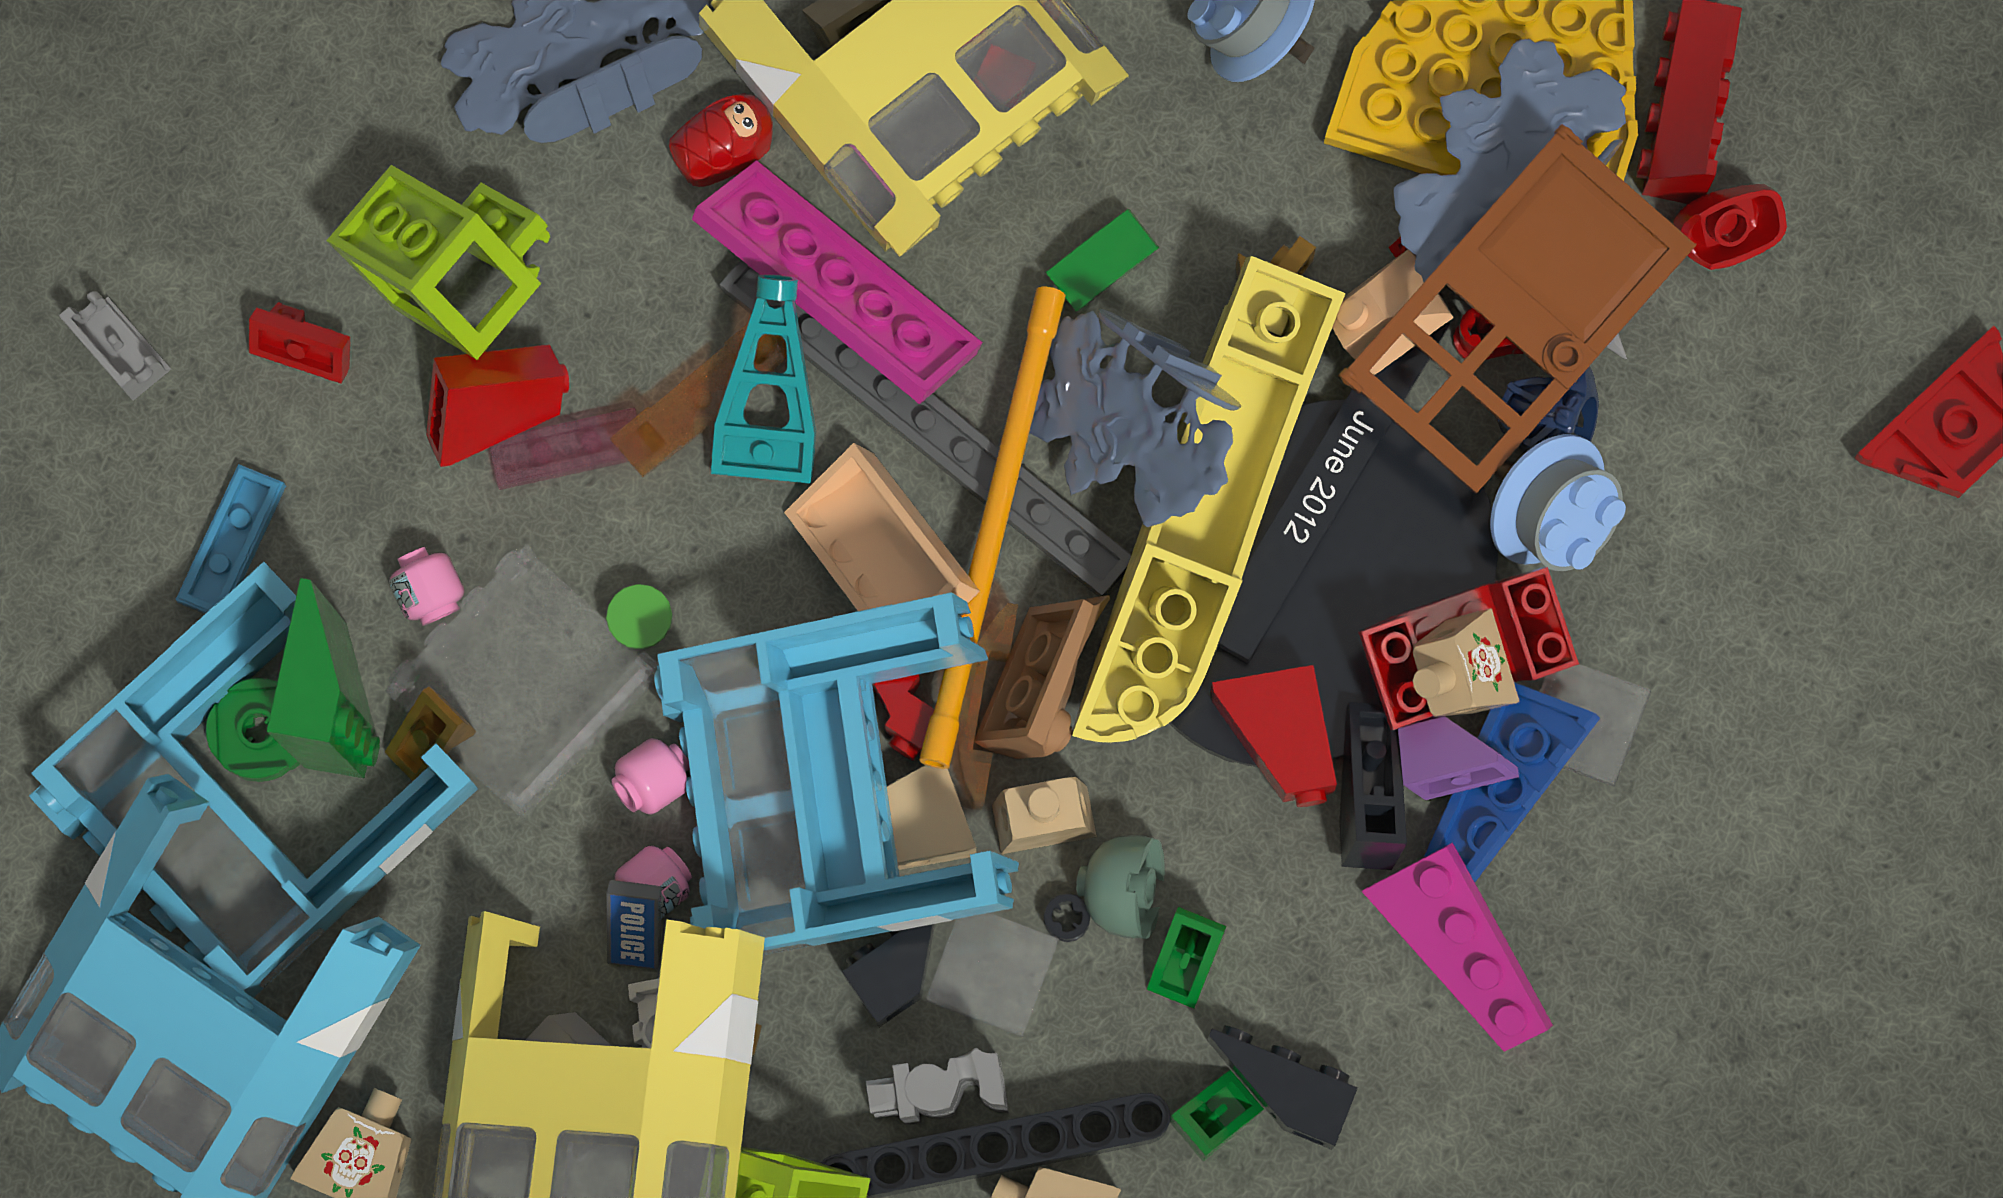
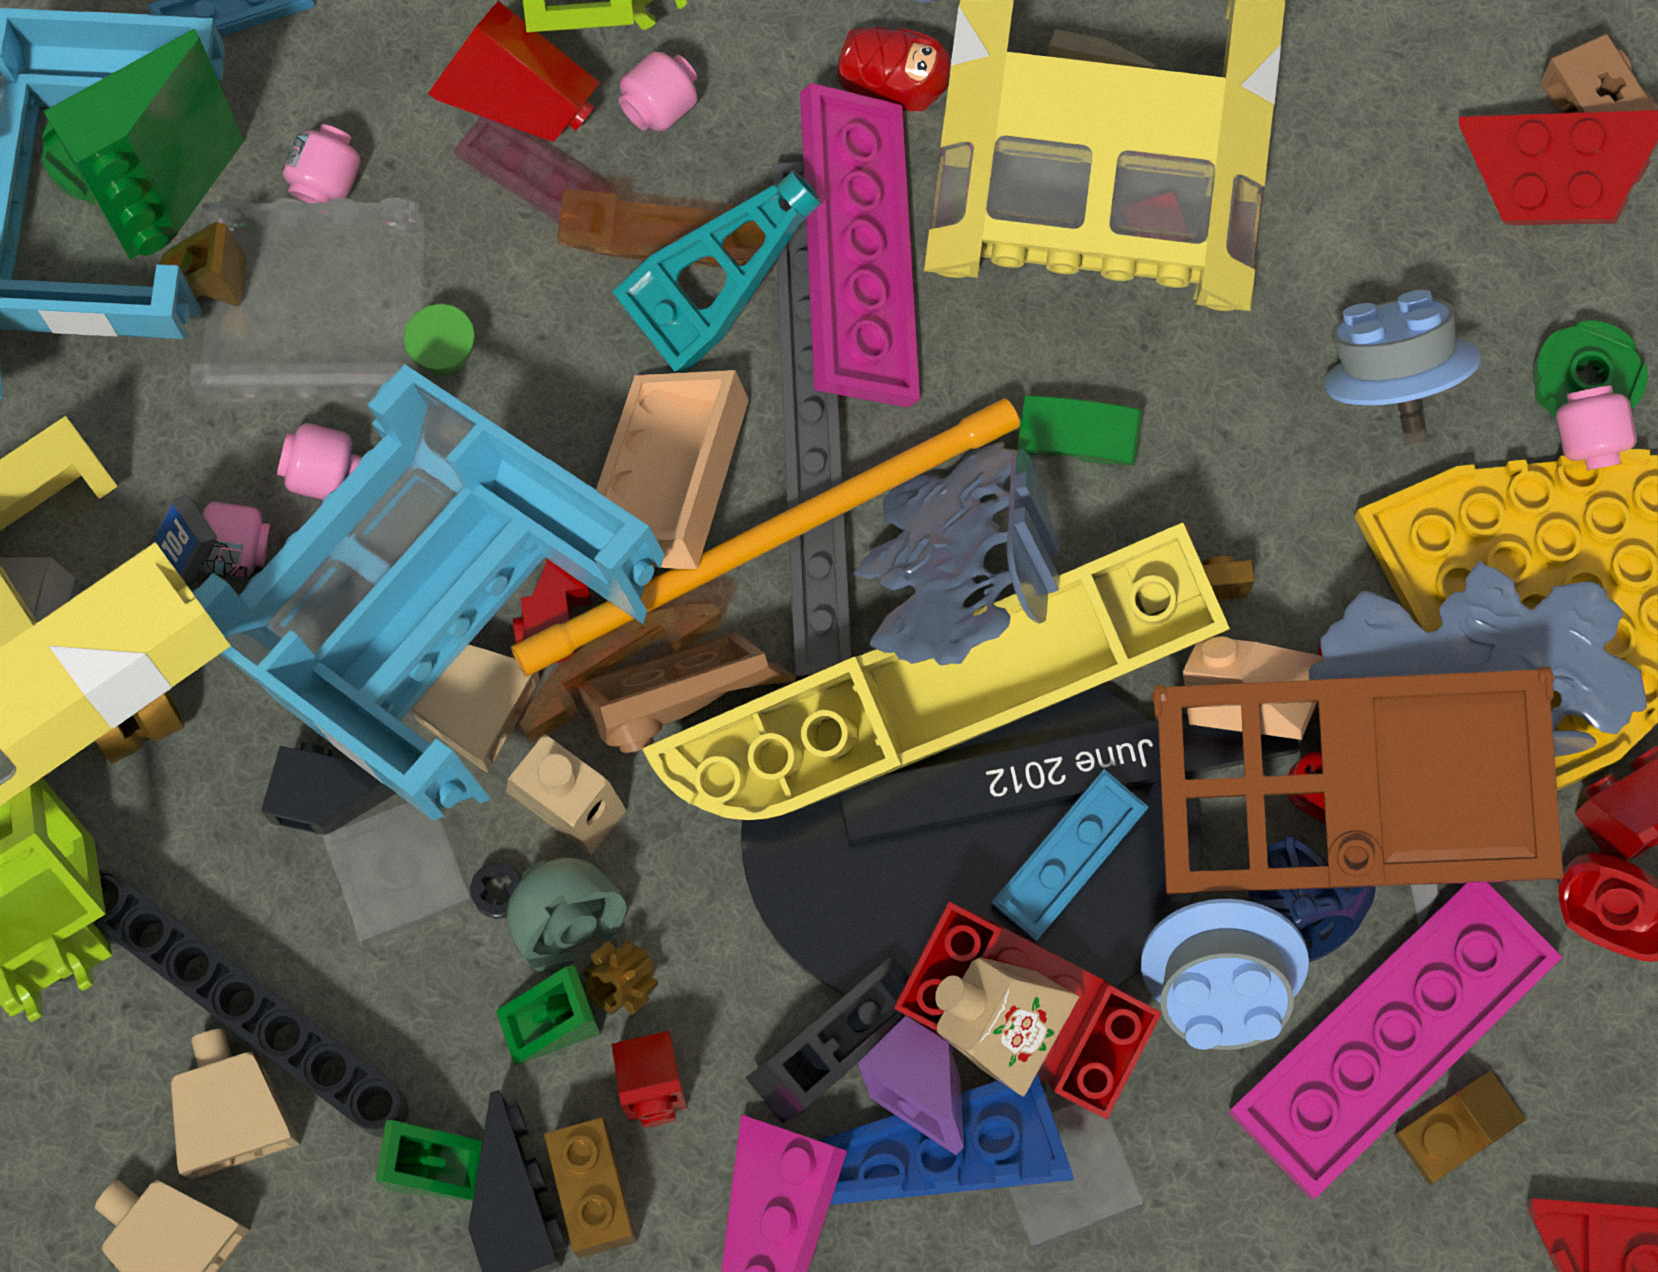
camera: 45 degrees right, 5 degrees down
(591, 311) = (658, 91): none -> bright pink head
(938, 1091) = (231, 898): light grey hips -> none
(1203, 887) = (619, 977): none -> pearl gold gear
(1282, 730) = (814, 920): red slope -> none
(1290, 926) = (649, 1079): none -> red slope
(1326, 1027) = (590, 1188): none -> pearl gold brick
(1387, 531) = (1069, 855): none -> dark azure tile
(1683, 442) = (1394, 1036): none -> dark pink plate
(1774, 454) = (1460, 1127): none -> pearl gold slope

